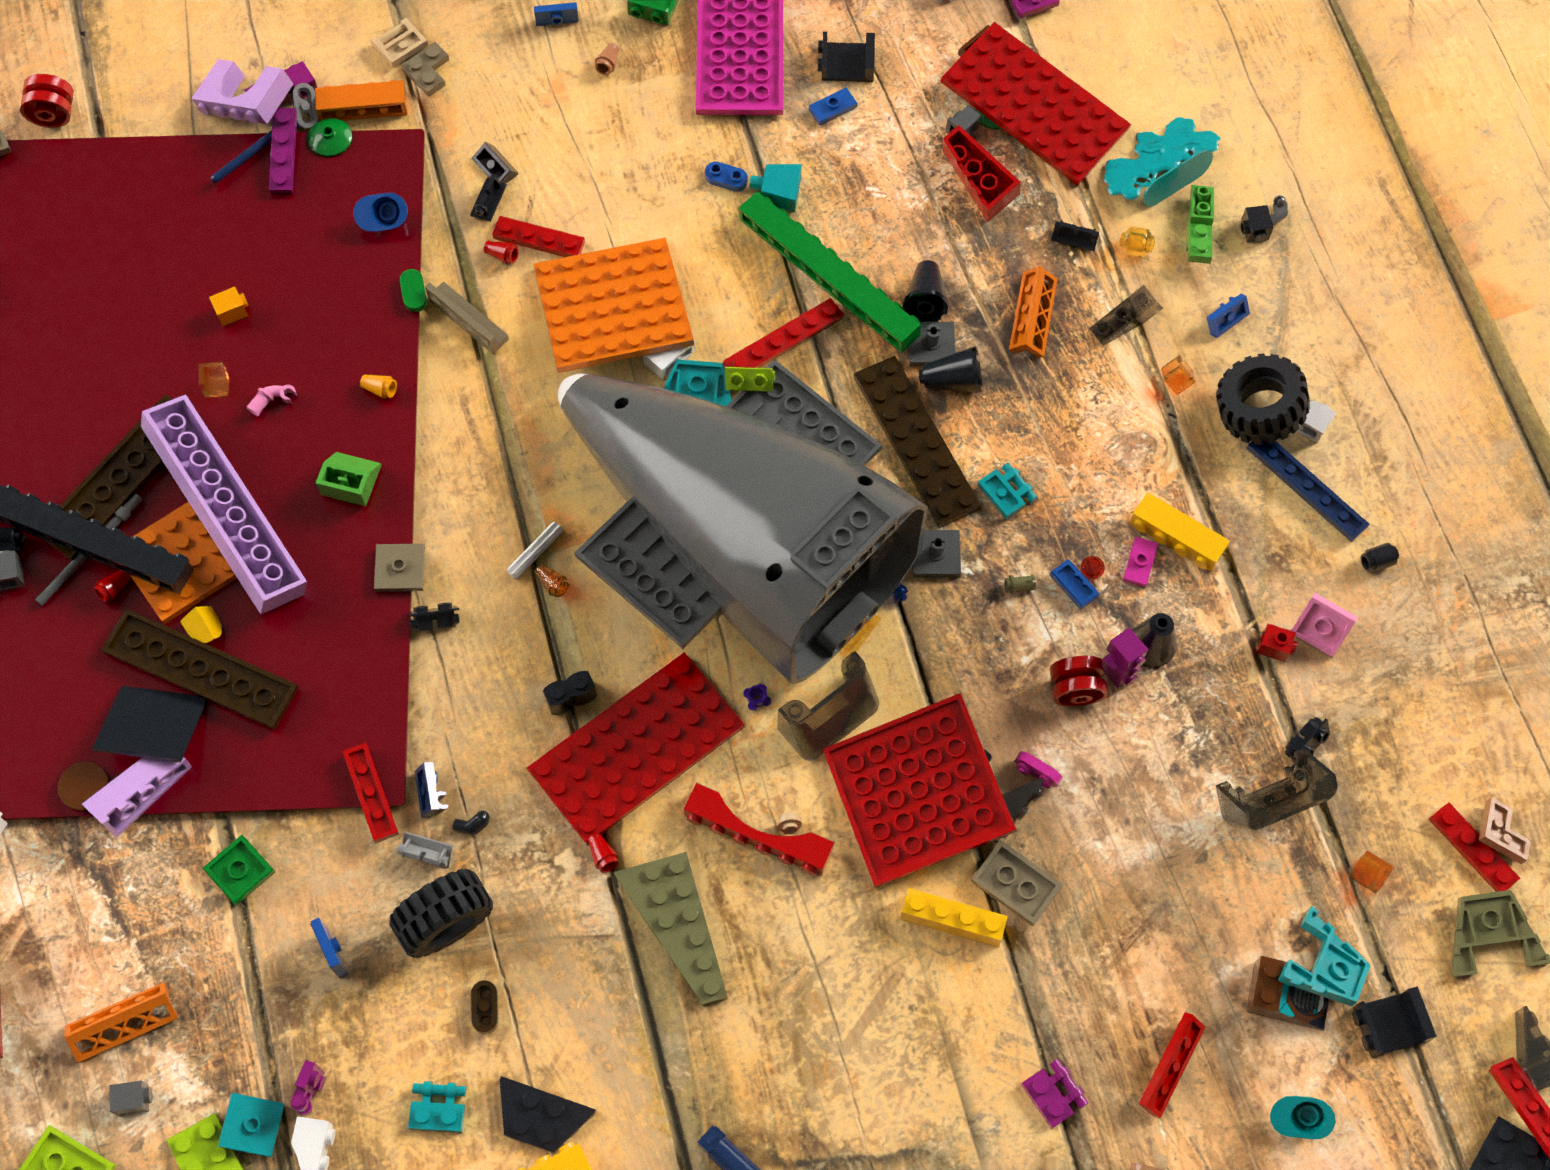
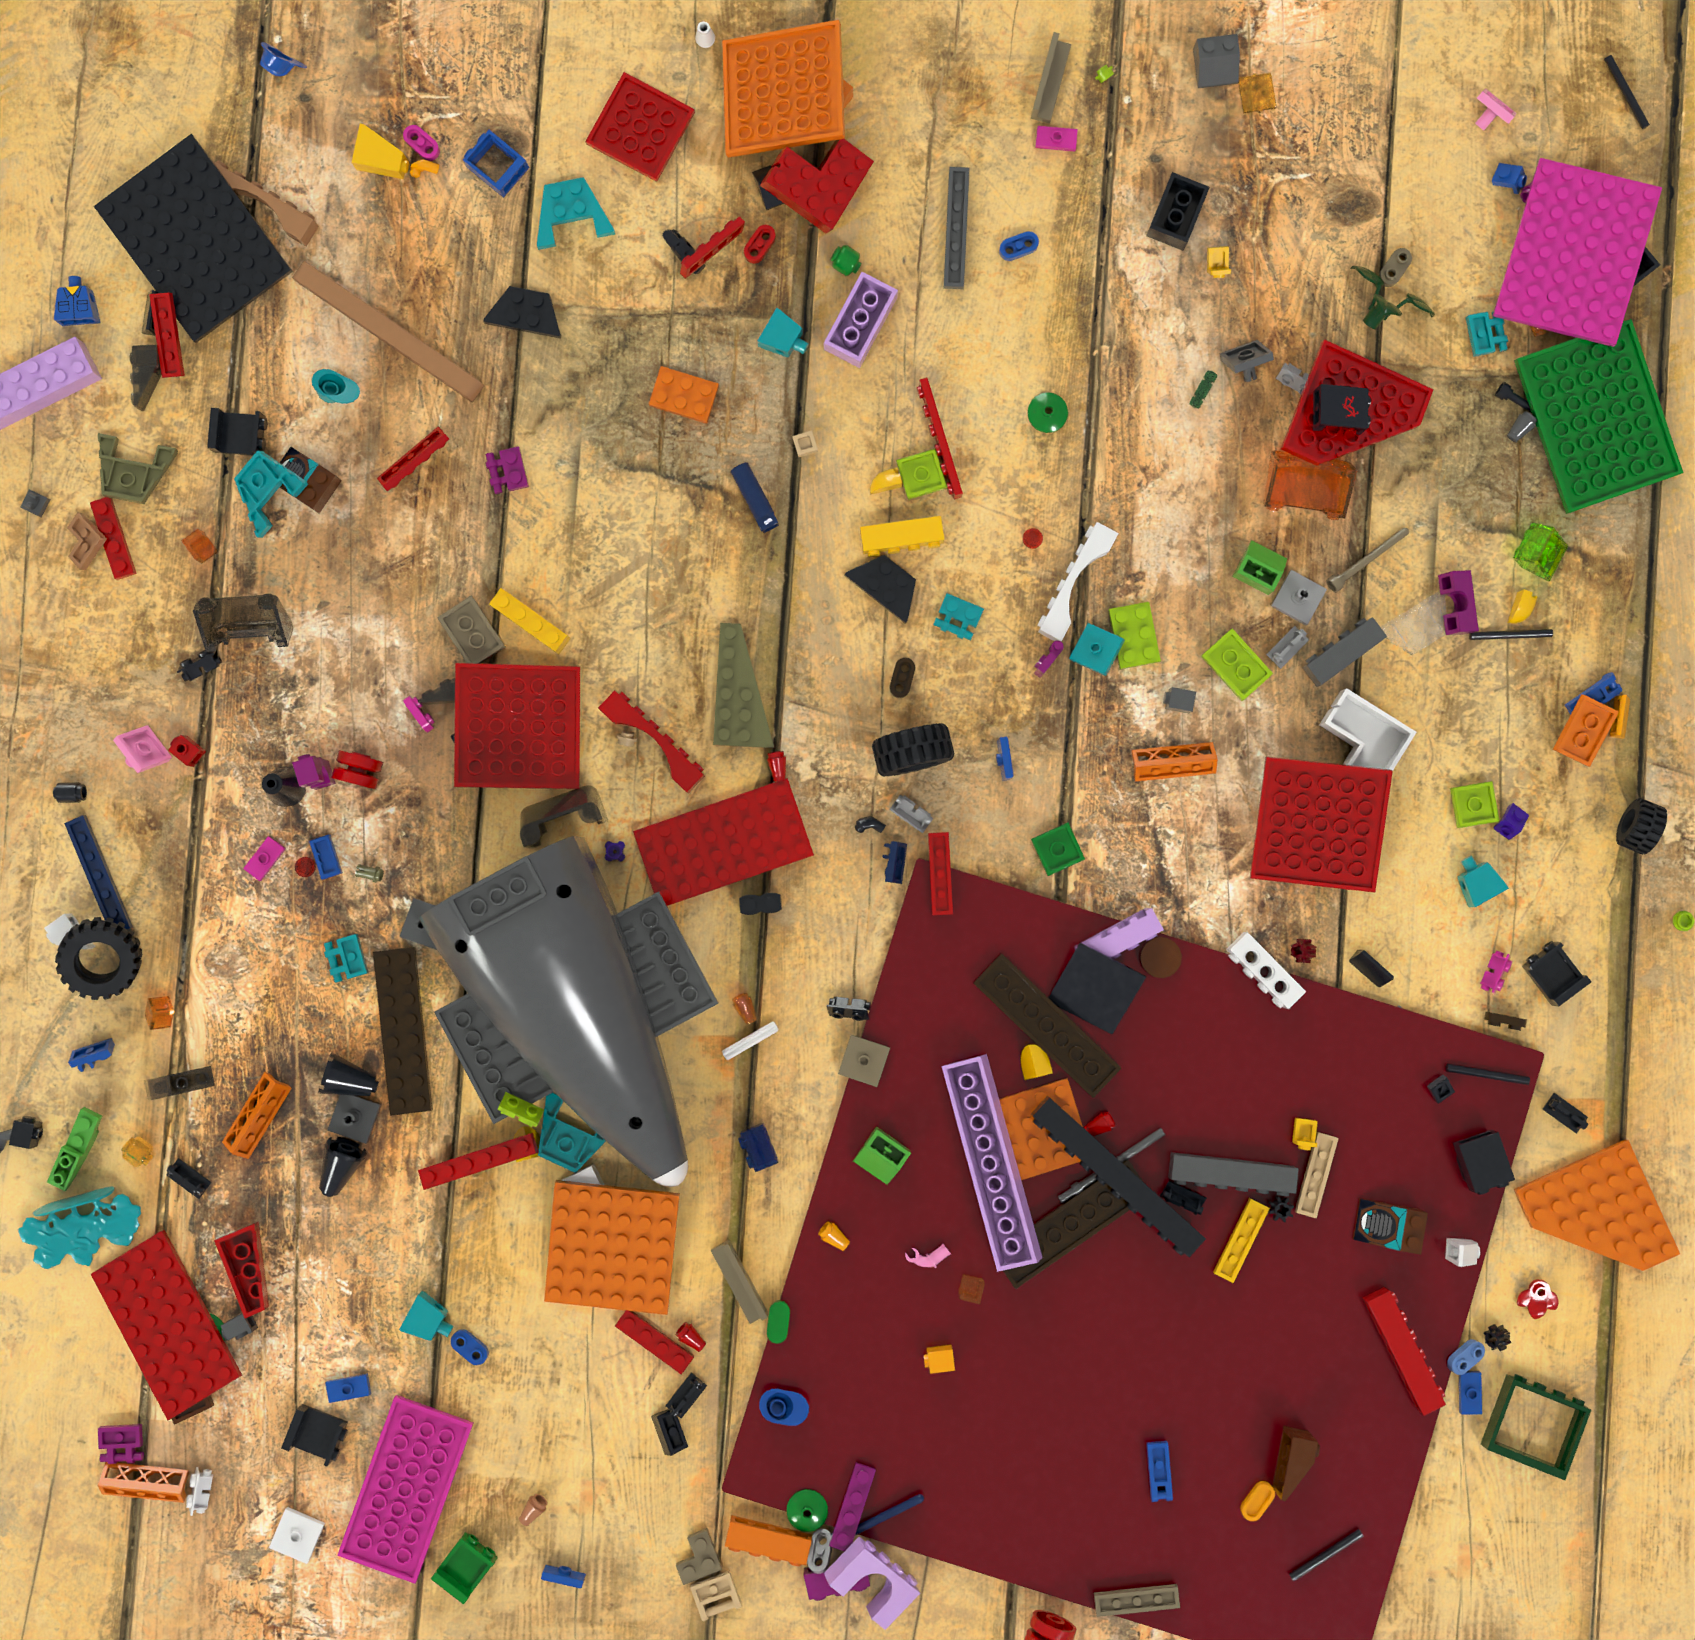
camera: 160 degrees left, 20 degrees up
(489, 447) = (758, 1147): none -> clear blue brick
(830, 272) = (415, 1215): green brick -> none
(1179, 532) = (221, 871): yellow brick -> none

